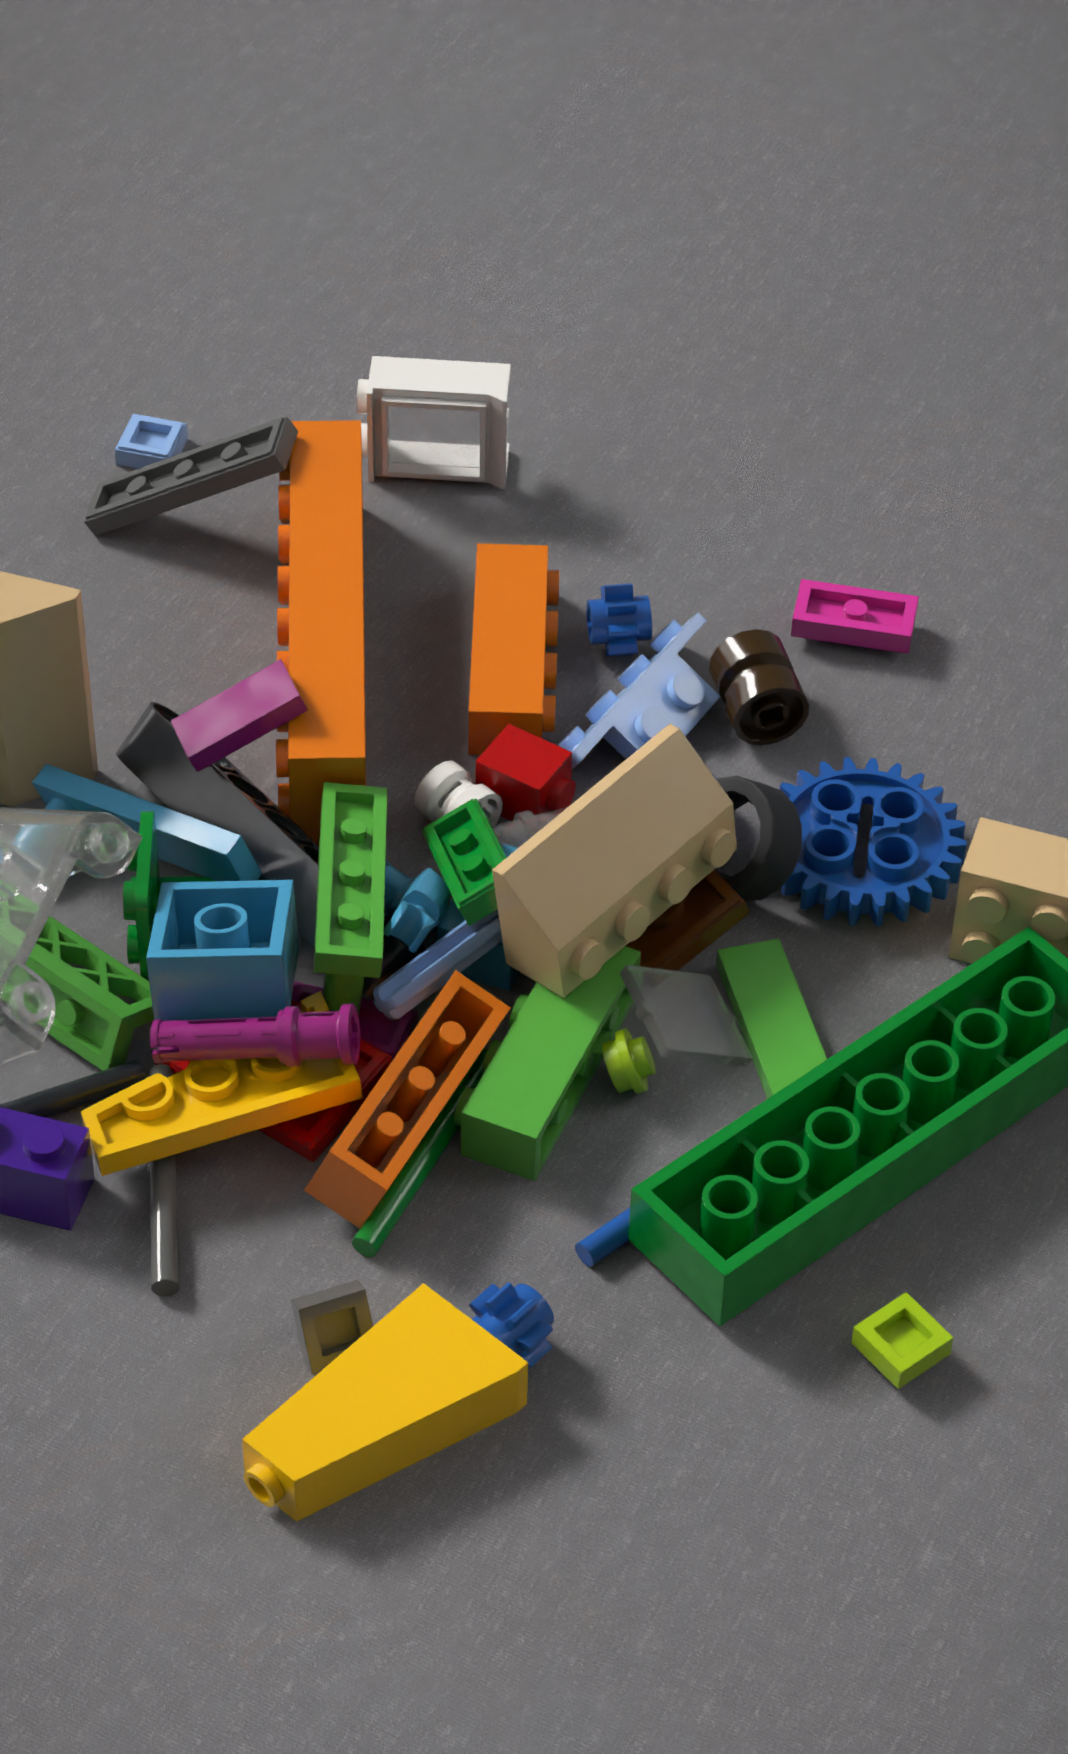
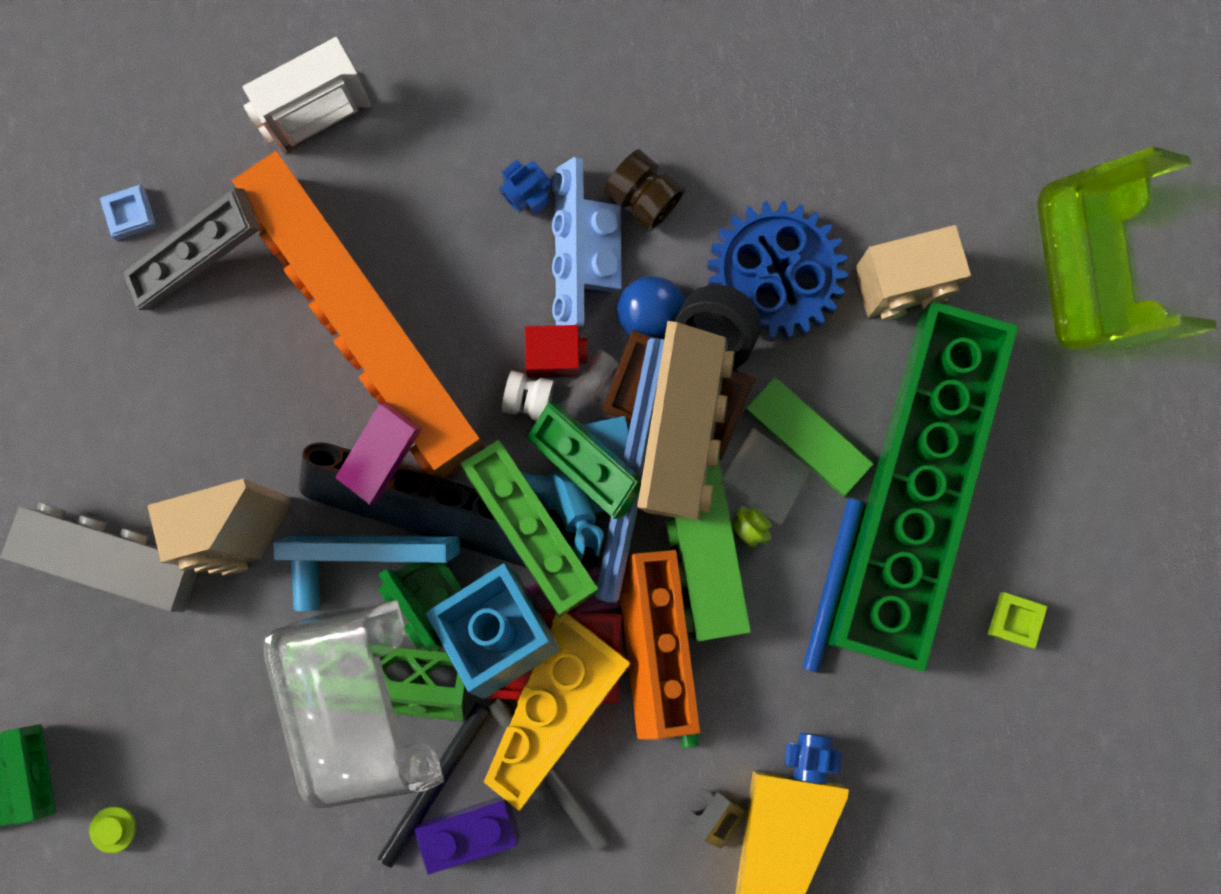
camera: 30 degrees left, 35 degrees up
(289, 1037) = (573, 669): magenta pin -> none
(510, 643) = (475, 251): orange brick -> none
(854, 616) = (658, 88): dark pink plate -> none

